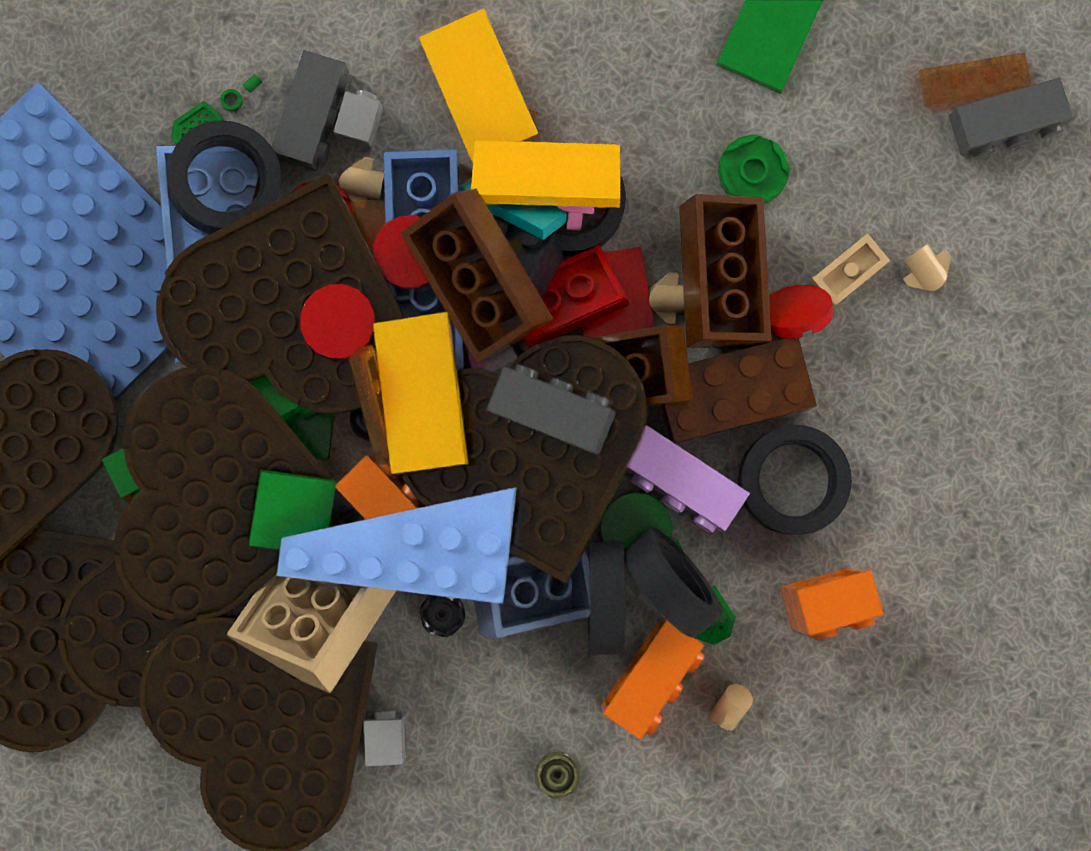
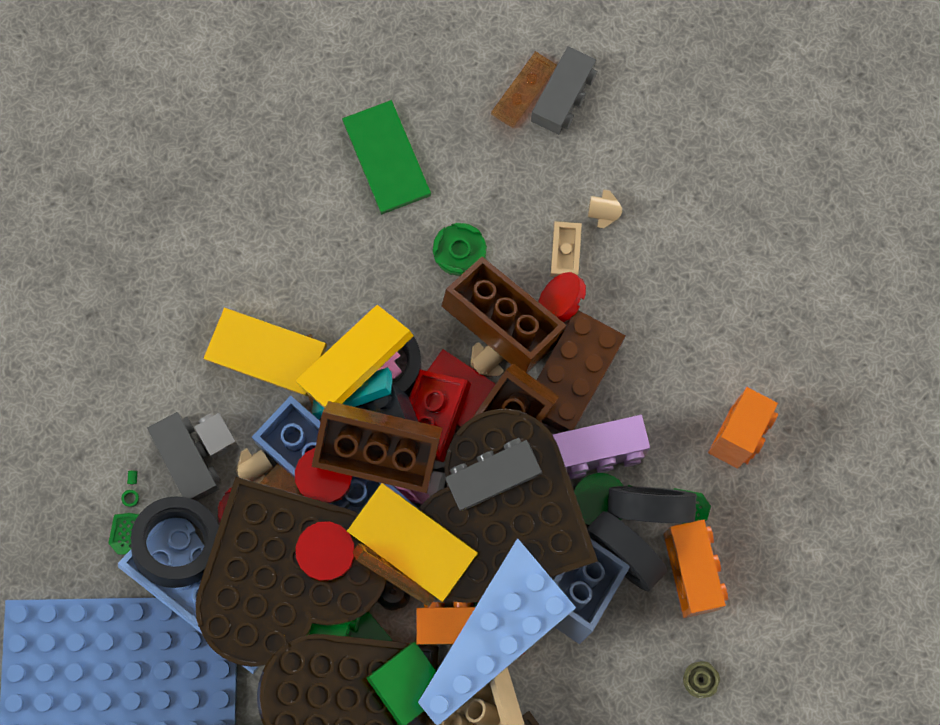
camera: 50 degrees left, 10 degrees down
(438, 625) = (555, 656): black plate -> none
(731, 706) = (752, 542): tan piece -> none
(838, 479) = (660, 355): black tyre -> none

